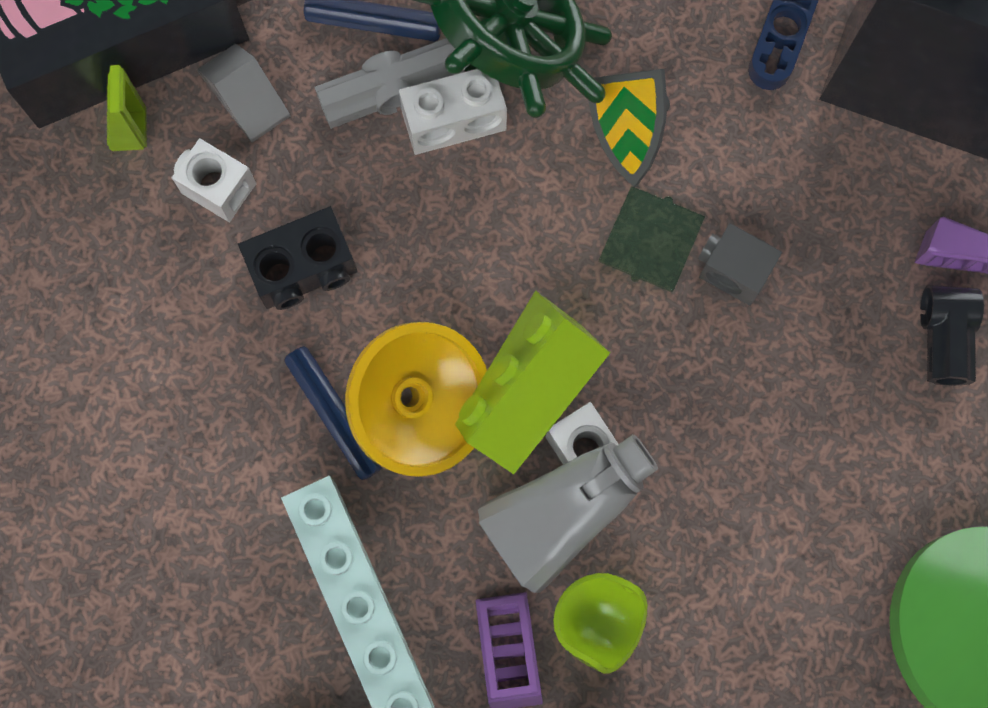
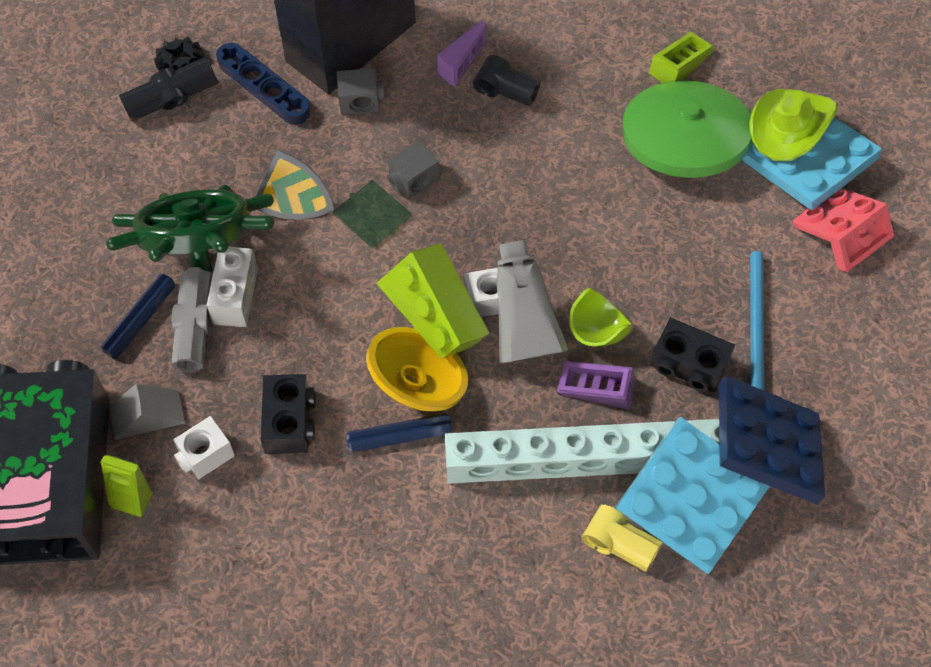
camera: 65 degrees left, 15 degrees down
(835, 136) = (359, 91): none -> dark grey brick

